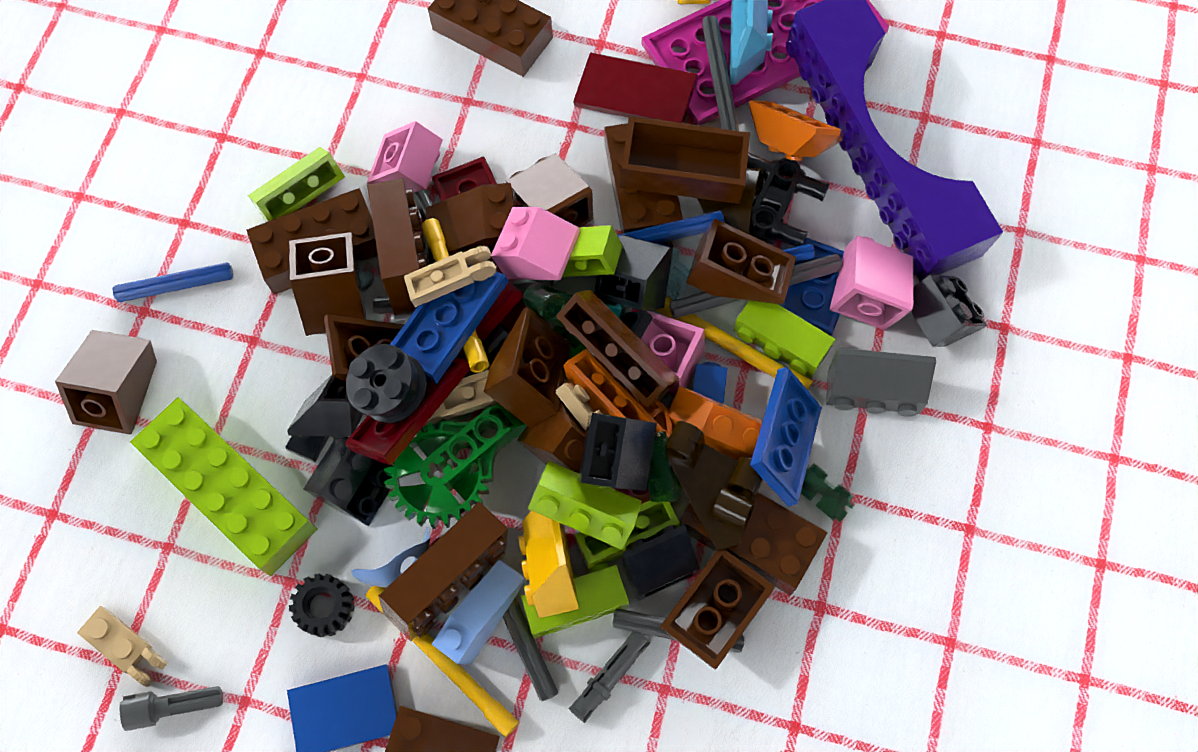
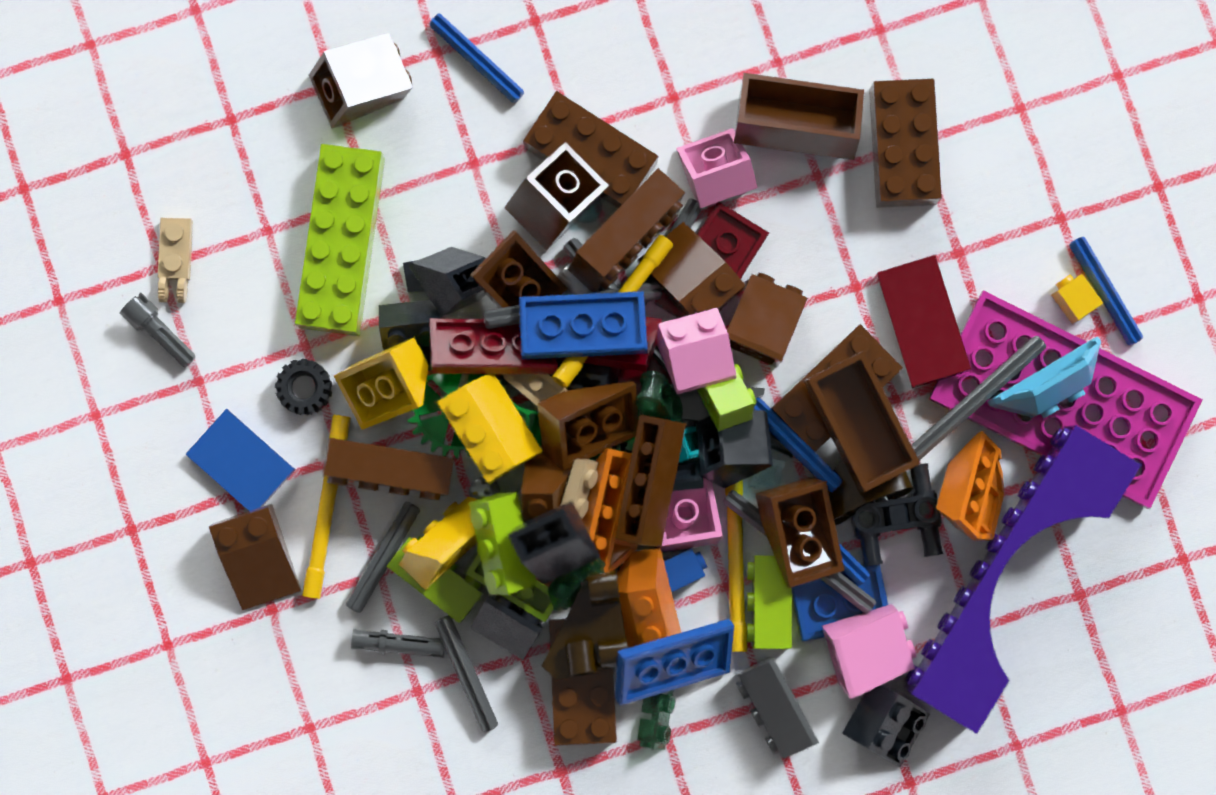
camera: 50 degrees right, 15 degrees up
(297, 185) = (627, 96): lime brick -> none
(370, 519) = (385, 383): none -> yellow slope
(386, 383) = (491, 323): black wheel -> none
(388, 573) = (370, 433): light blue piece -> none
(411, 74) = (799, 116): none -> reddish brown piece
(449, 275) = (614, 303): tan hinge -> none
(474, 451) = (490, 427): none -> yellow slope
(479, 614) = (376, 514): light blue slope -> none
(521, 500) = (480, 488): none -> dark grey piece
(717, 608) = (499, 694): reddish brown slope -> none

